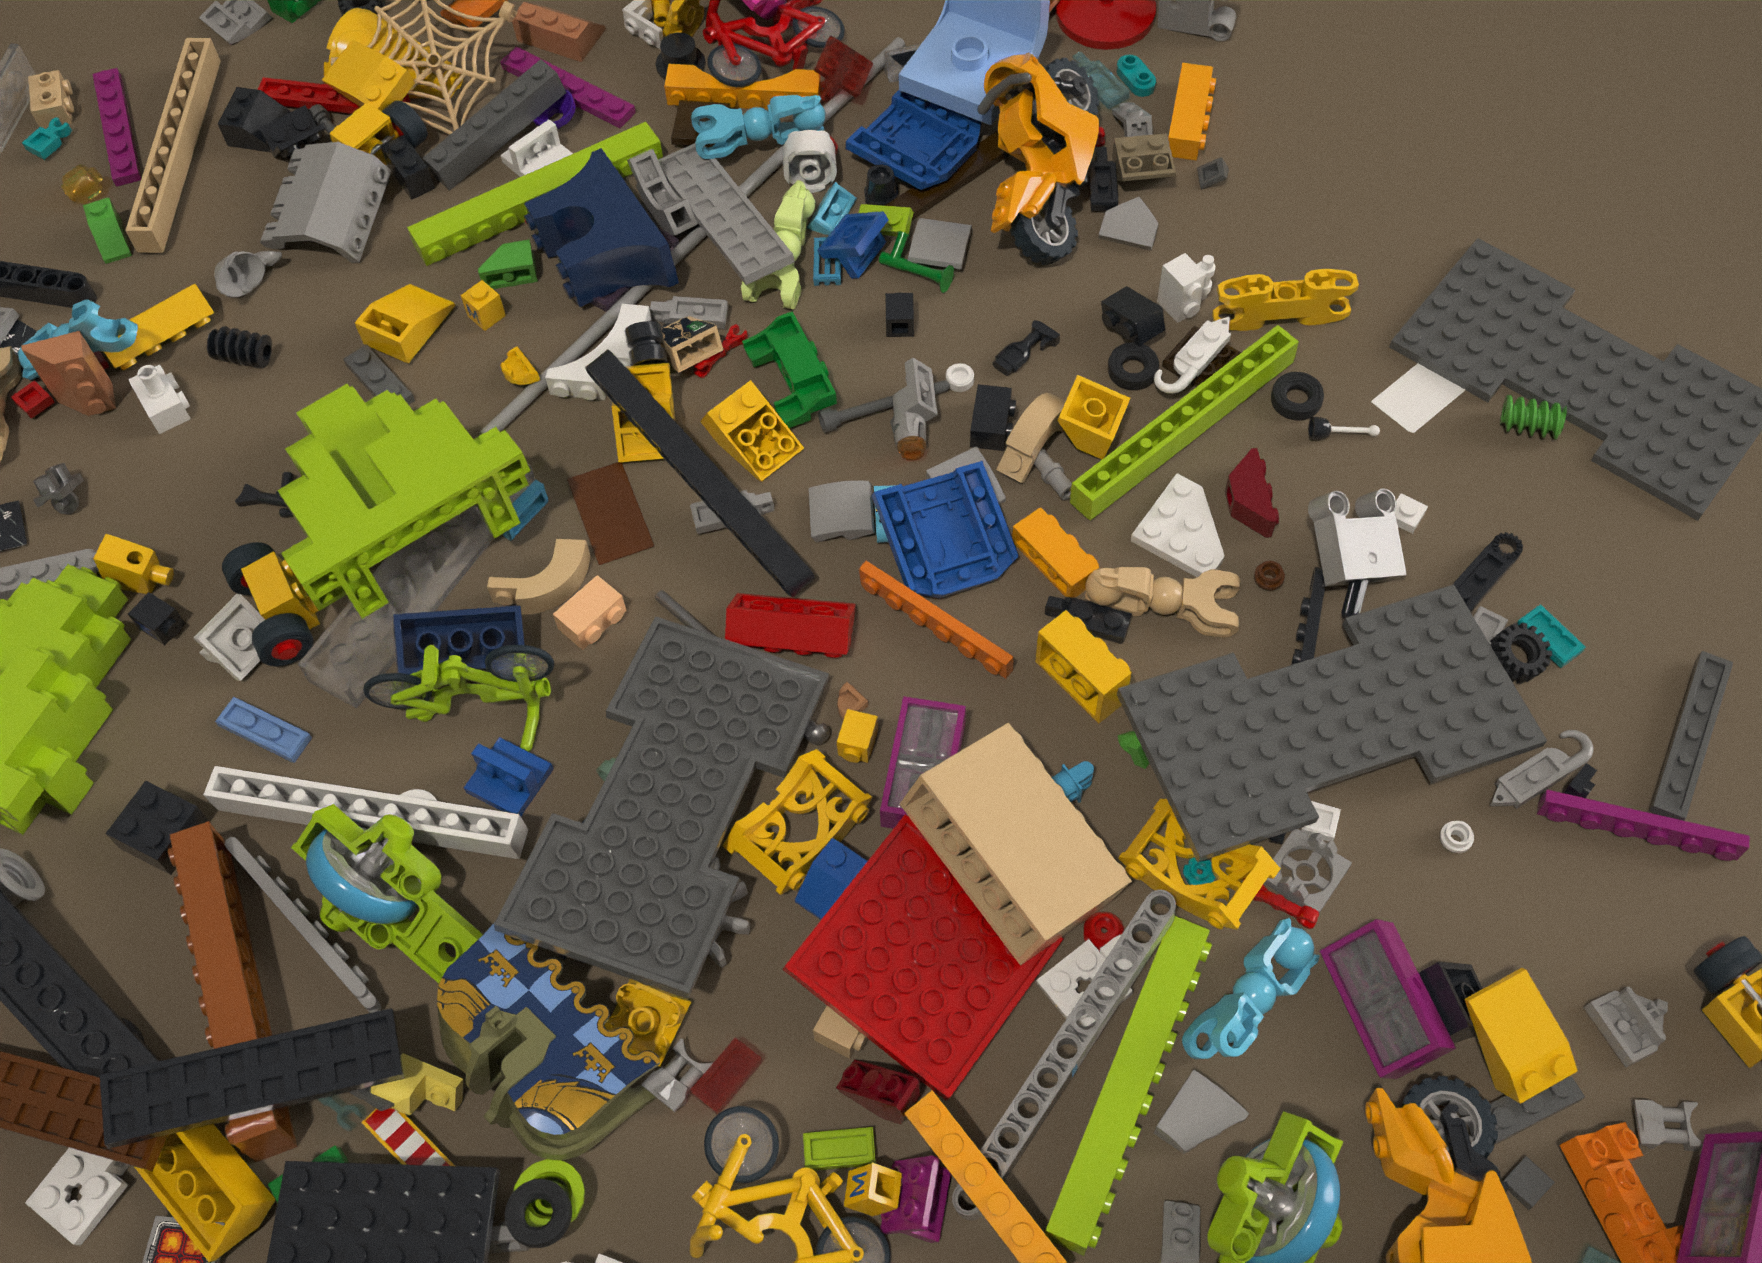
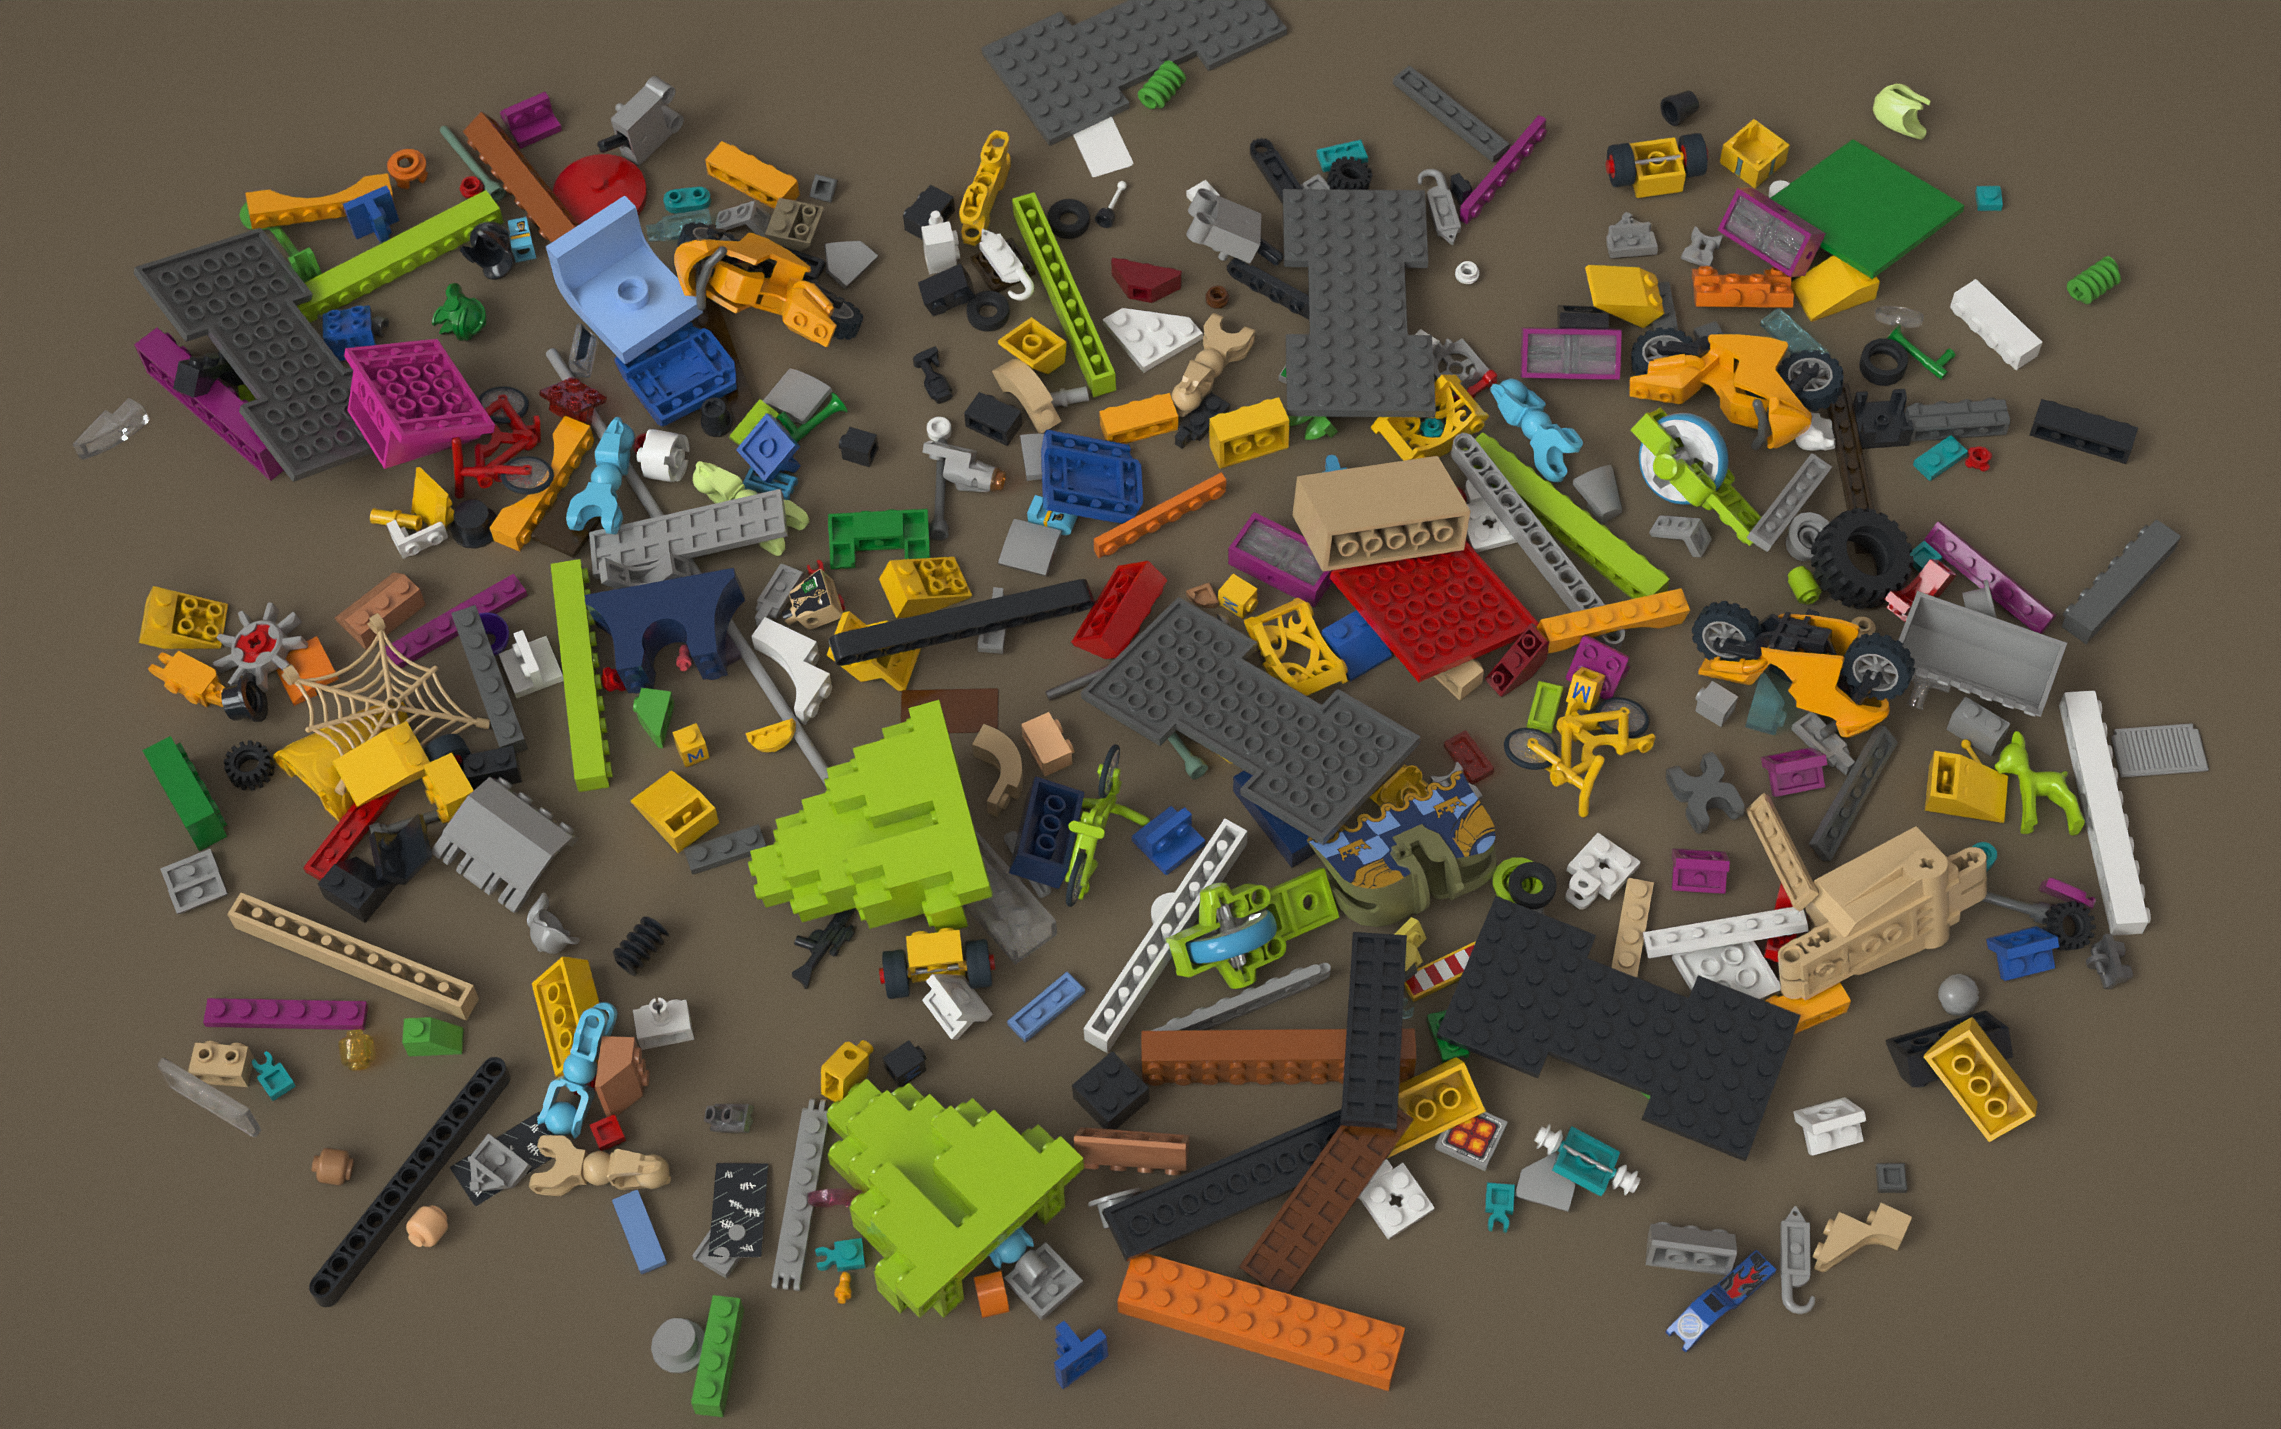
camera: 70 degrees left, 0 degrees up
(70, 867) = (1132, 1149): none -> nougat slope
(645, 343) = (816, 625): black wheel -> none
(831, 209) = (713, 454): medium azure slope -> none
(1231, 263) = (920, 212): none -> black brick

